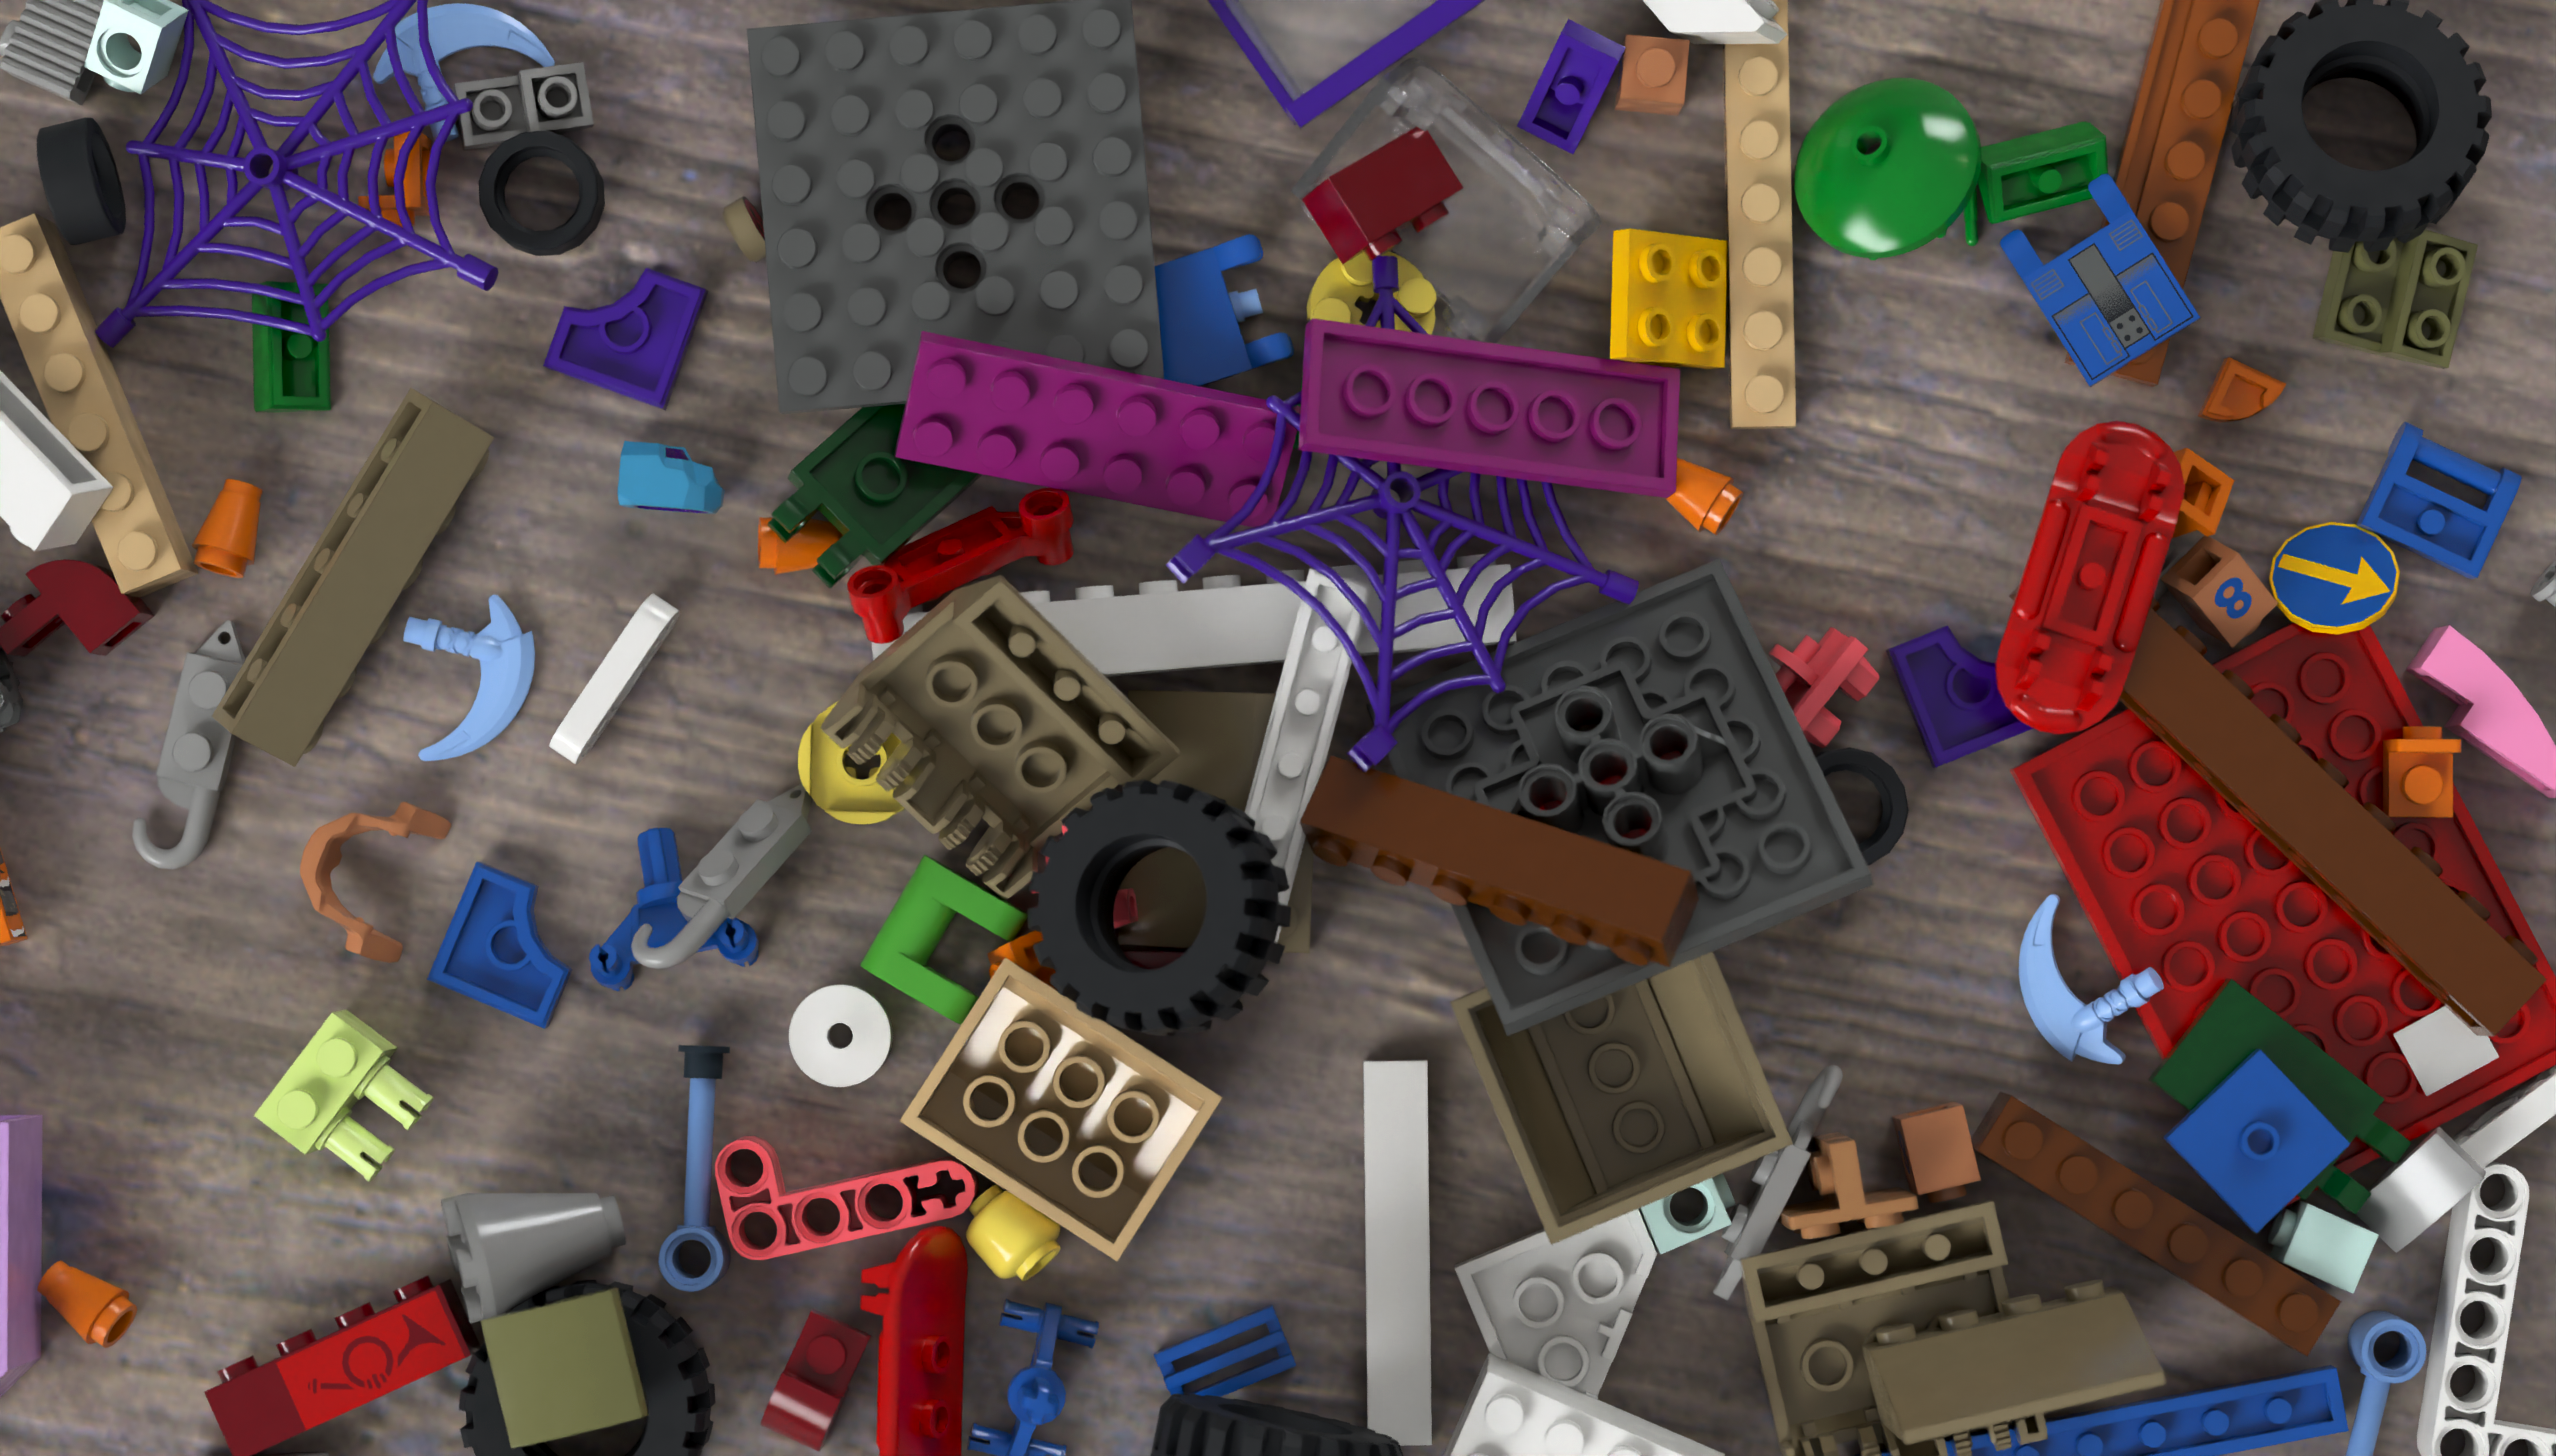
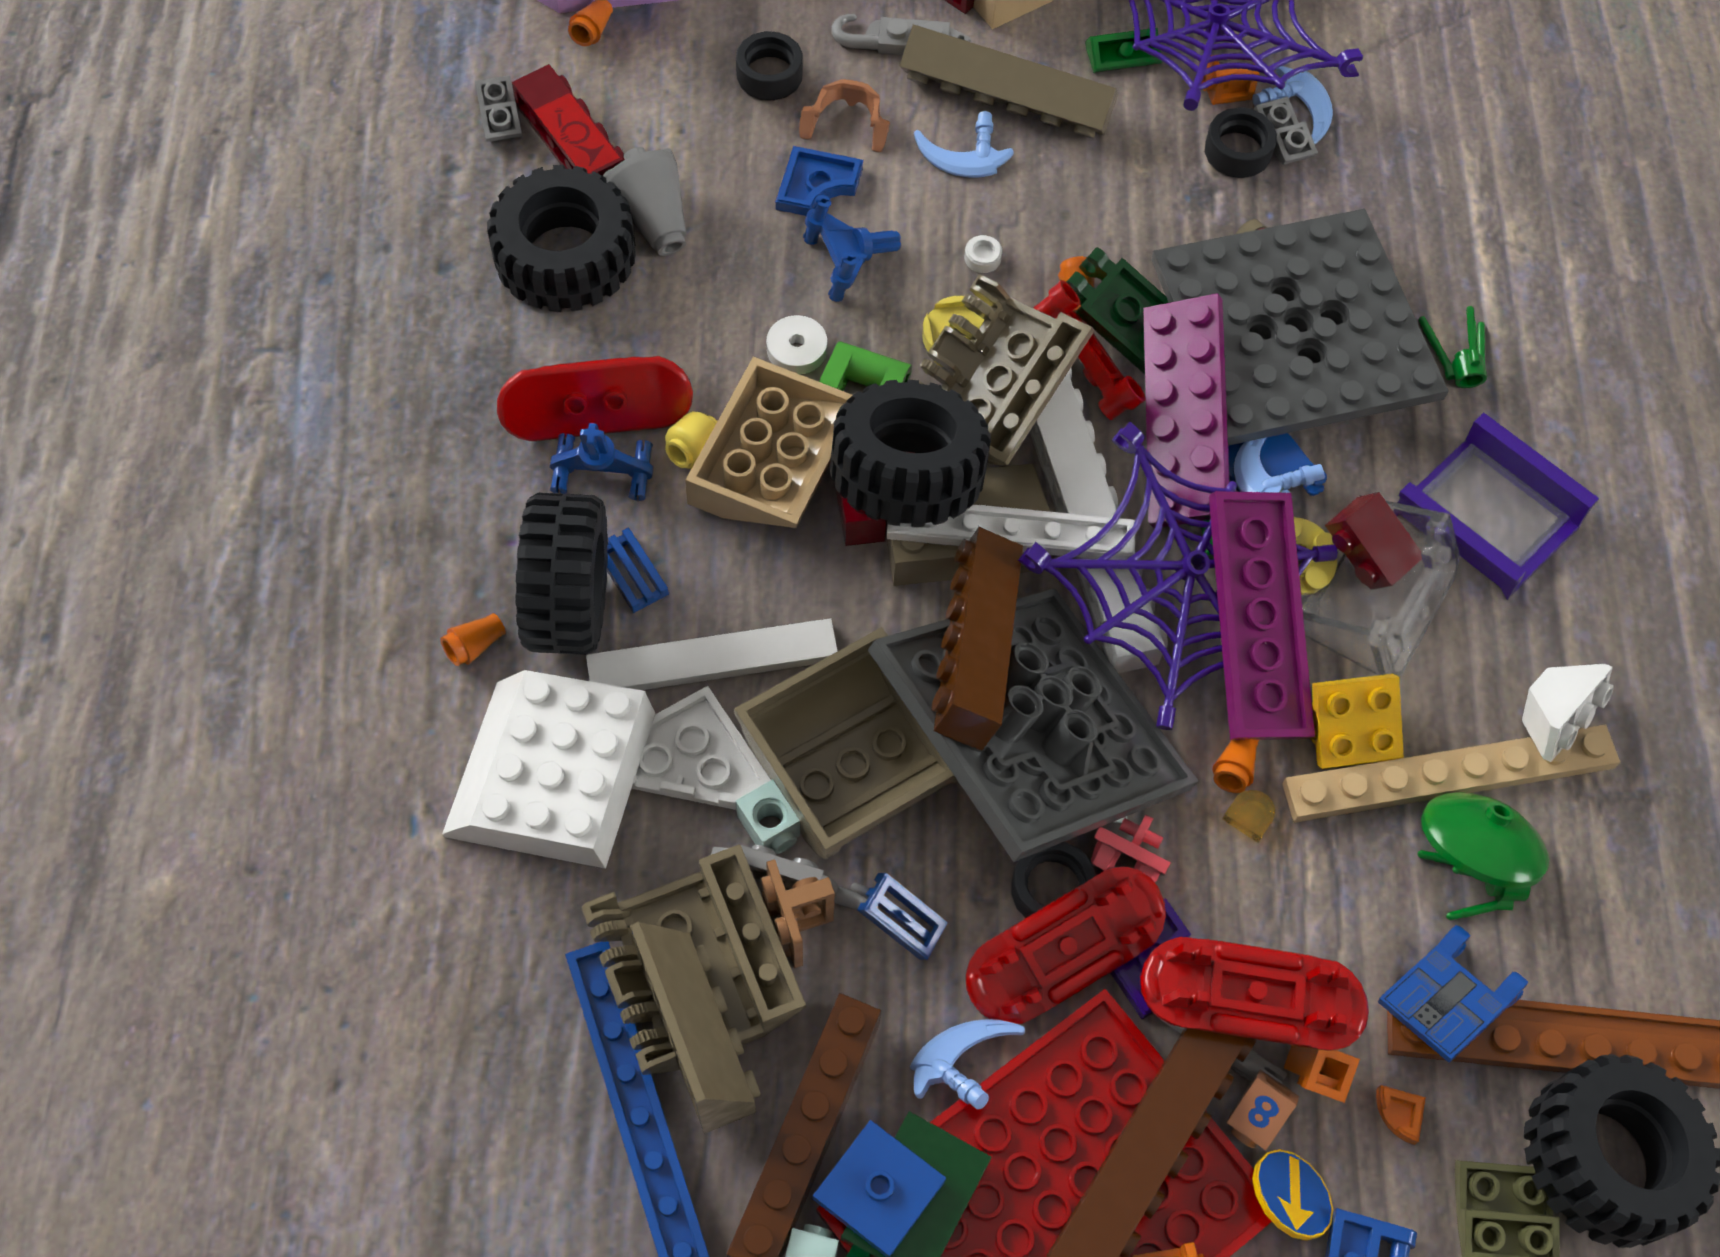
camera: 80 degrees right, 25 degrees down
(193, 1004) = (769, 45): none -> black tyre
(230, 530) = (1019, 32): orange cone -> none
(325, 1082) = (727, 104): yellowish green brick -> none
(564, 1368) = (584, 198): olive slope -> none
(614, 678) = (1000, 215): white beam -> none
(633, 343) = (1170, 199): dark purple tile -> none
(666, 480) = (1097, 214): dark azure rock -> none
(702, 689) = (983, 254): none -> white tile
(703, 1067) = (658, 284): medium blue piece -> none
(731, 875) = (882, 262): light grey plate -> none
(815, 1380) = (585, 340): dark red brick -> none
(849, 1196) = (694, 319): coral beam -> none
(1242, 351) = (1253, 478): none -> light blue piece
(1571, 86) = (1473, 647): dark purple slope -> none
(1652, 75) = (1495, 692): nougat brick -> none
(1776, 490) = (1251, 813): none -> clear yellow tile
(1844, 1070) = (877, 898): none -> tile
(1937, 1151) = (832, 974): nougat brick -> none
(1946, 809) = (1066, 945): none -> red piece
(2041, 171) = (1509, 947): green slope -> none

